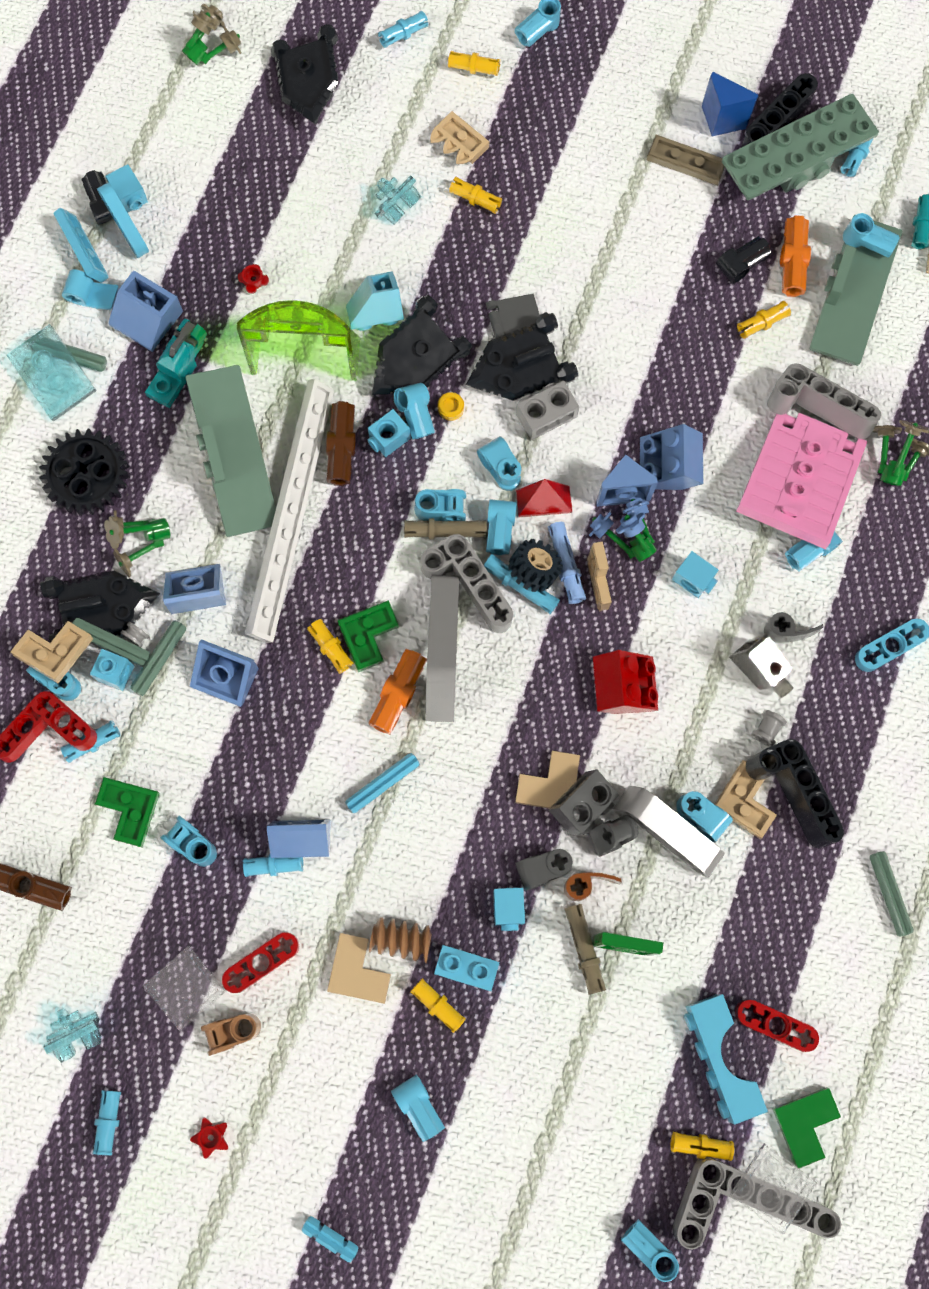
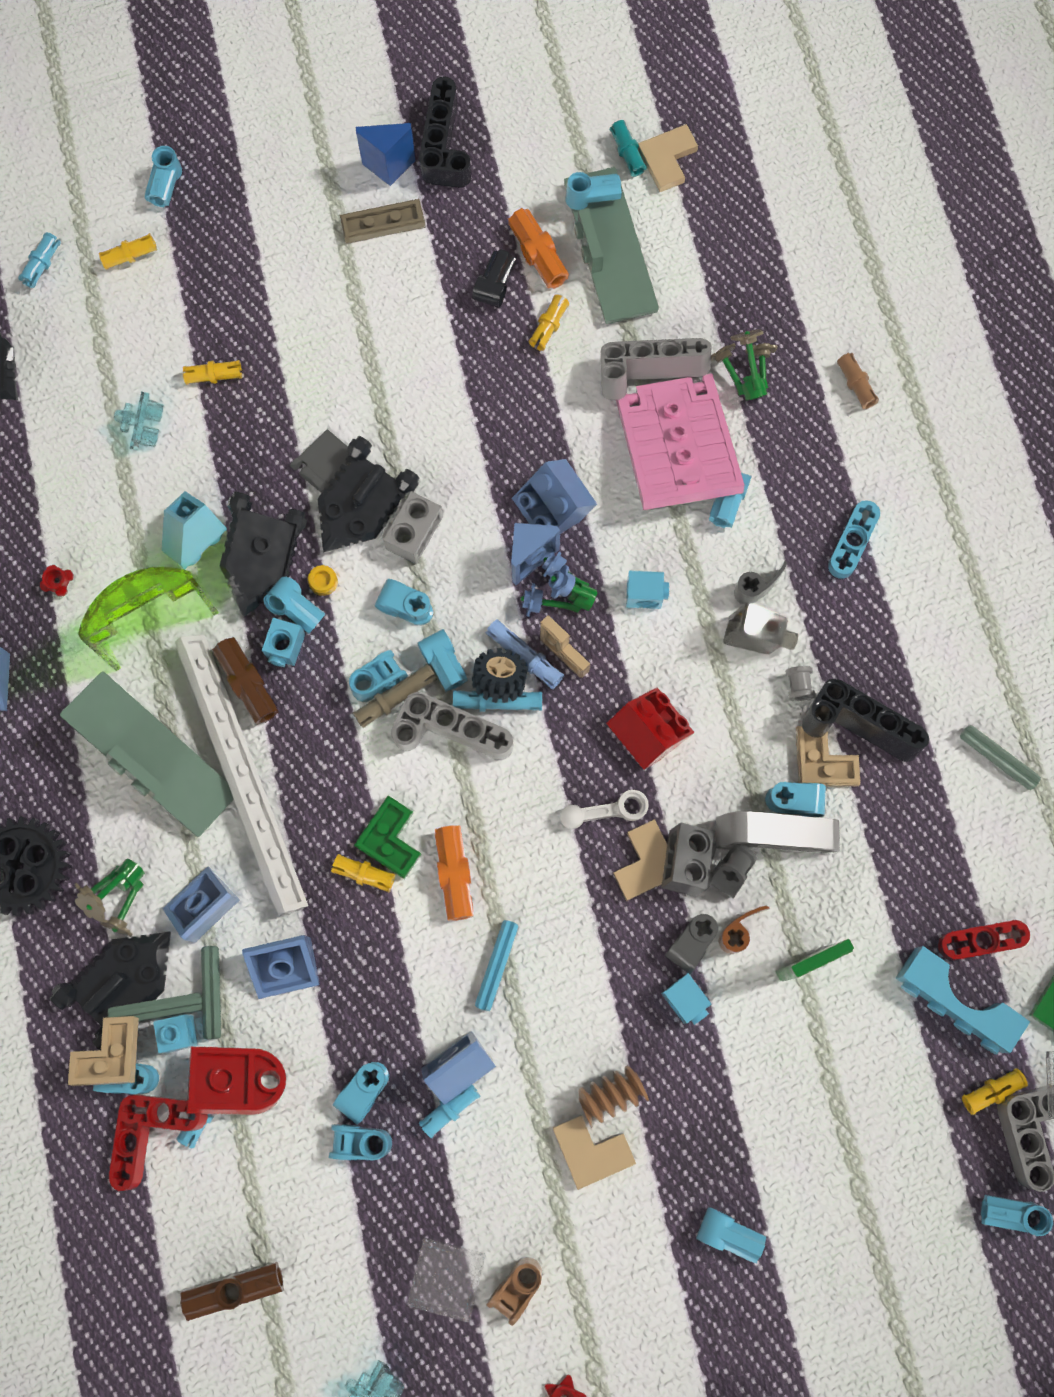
camera: 30 degrees left, 0 degrees up
(128, 731) = (230, 1081): none -> red tile
(134, 634) = (174, 986): light grey bush -> none
(136, 807) = (286, 1145): green tile -> none
(176, 363) = (38, 706): teal plate -> none
(214, 807) = (359, 1095): none -> medium azure piece
(238, 969) = (482, 1226): red beam -> none
(438, 1005) = (684, 1131): yellow pin -> none
(442, 649) = (469, 806): light grey beam -> none
(460, 138) = (162, 328): tan plate -> none
(466, 968) = (687, 1080): medium azure brick -> none
(518, 710) = (573, 816): none -> white piece
(543, 499) = (464, 610): red slope -> none
(587, 957) = (781, 992): dark tan pin -> none
(800, 149) = (478, 149): sand green bracket -> none
(855, 158) = (529, 119): medium azure pin -> none

